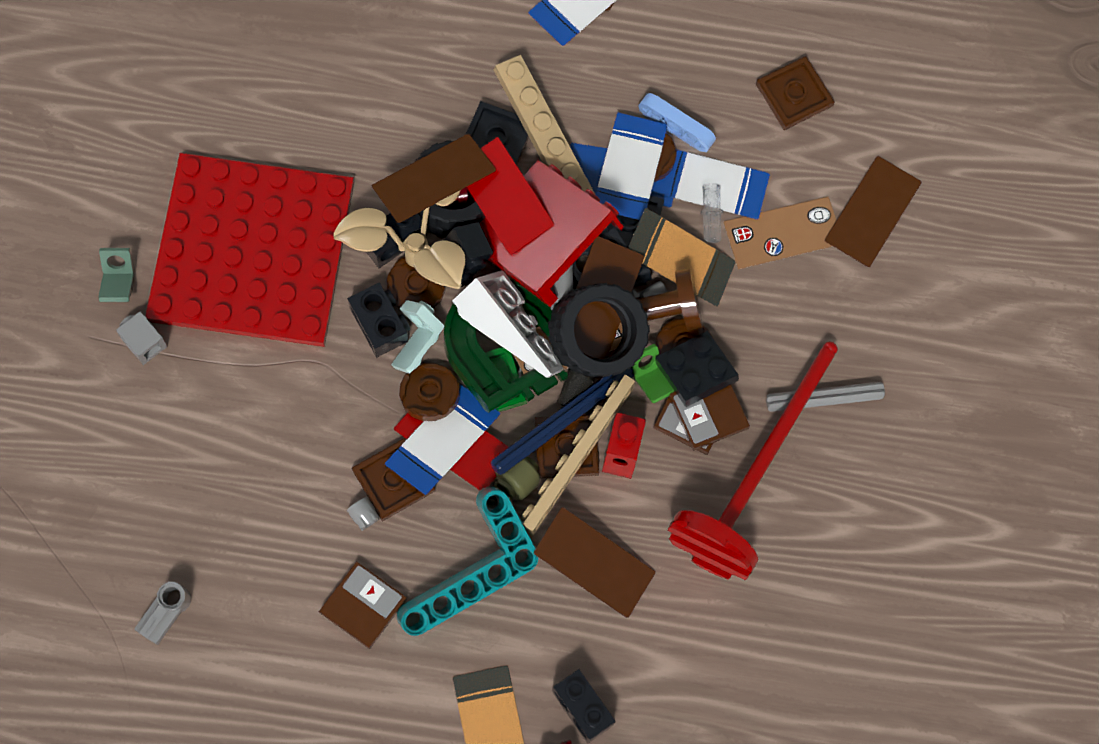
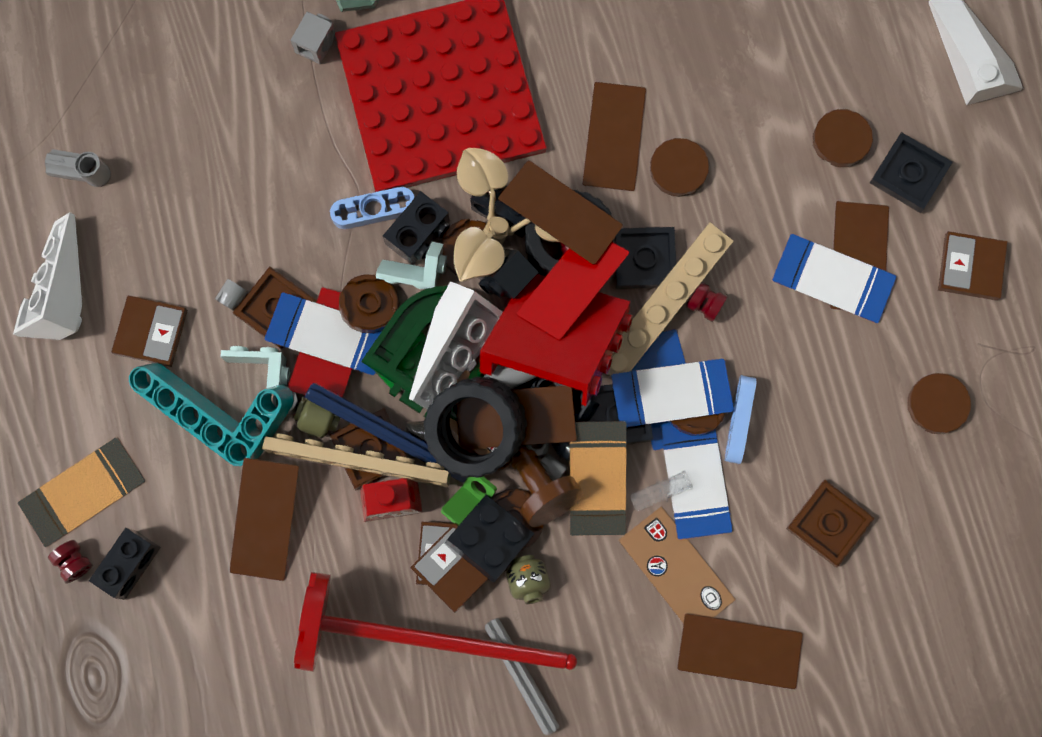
camera: 75 degrees right, 5 degrees up
(284, 679) = (57, 296): none -> white wedge
(333, 330) = (362, 200): none -> light blue beam
(367, 118) = (614, 136): none -> reddish brown sticker
(424, 75) = (679, 167): none -> reddish brown tile
(459, 498) = (277, 371): none -> light aqua bracket
(563, 102) = (712, 306): none -> dark red wheel
(745, 353) = (528, 579): none -> olive head

